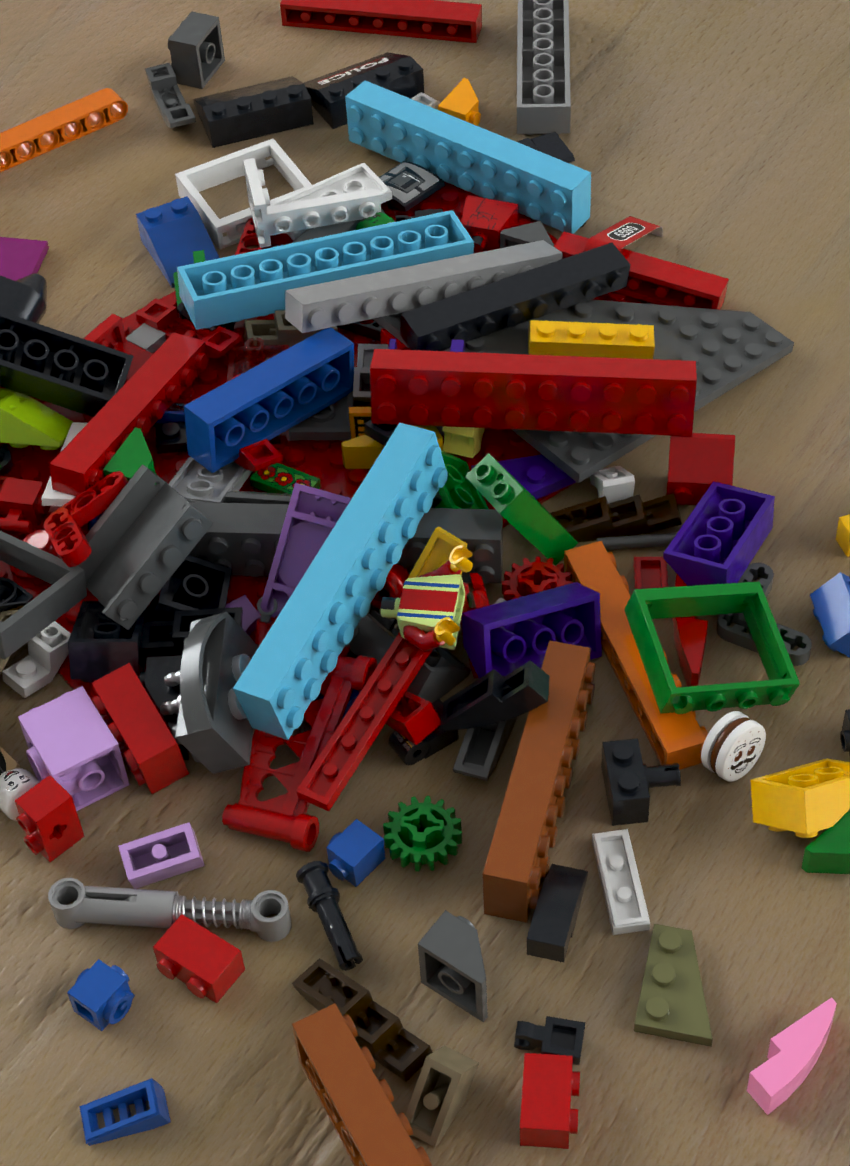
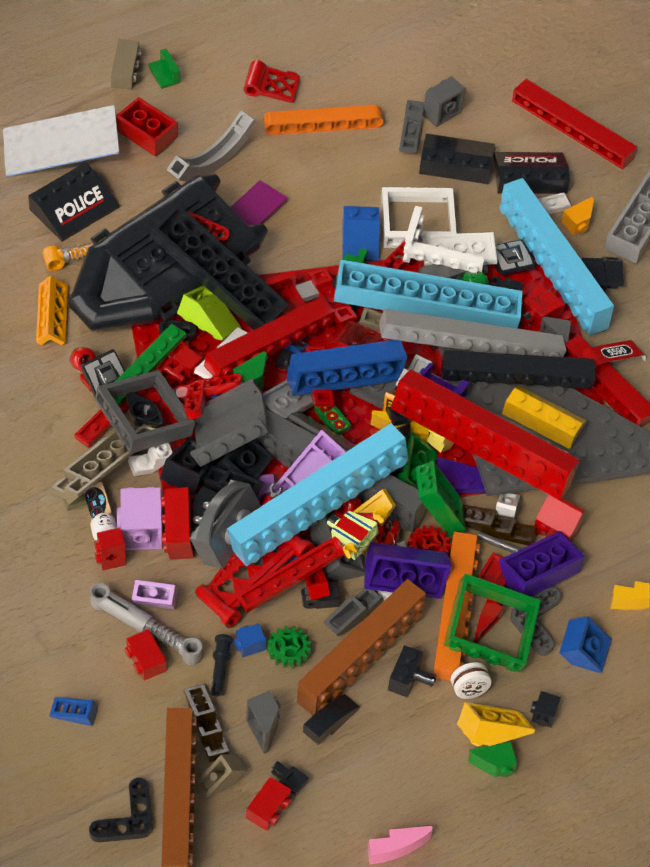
camera: 20 degrees right, 5 degrees up
(101, 995) = (91, 649): blue brick -> none
(496, 698) = (361, 596): black slope -> none
(620, 882) = (372, 720): white tile -> none
(672, 989) = (362, 784): olive wing -> none

